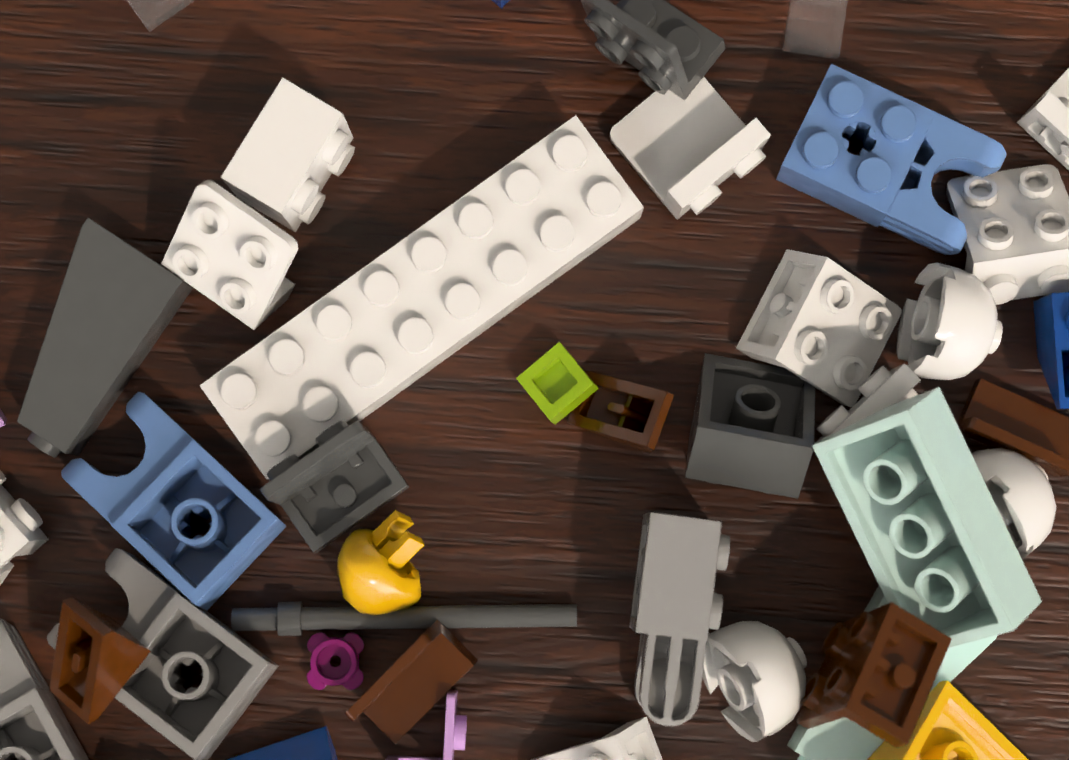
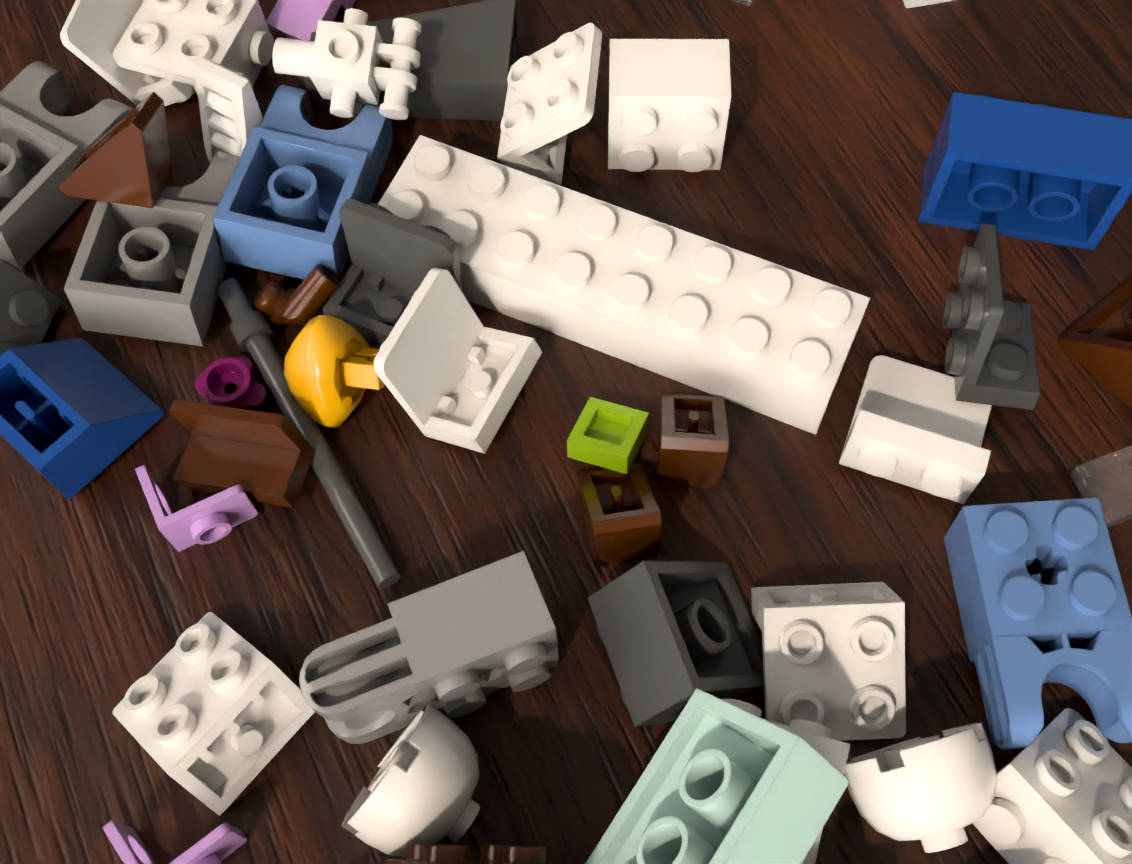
camera: 65 degrees right, 20 degrees down
(75, 541) = (226, 109): none -> white slope
(93, 410) = (350, 62): none -> white piece
(289, 571) = (298, 304): none -> reddish brown arm
(438, 470) = (452, 369): none -> white bracket
(592, 317) = (692, 441): none -> reddish brown slope

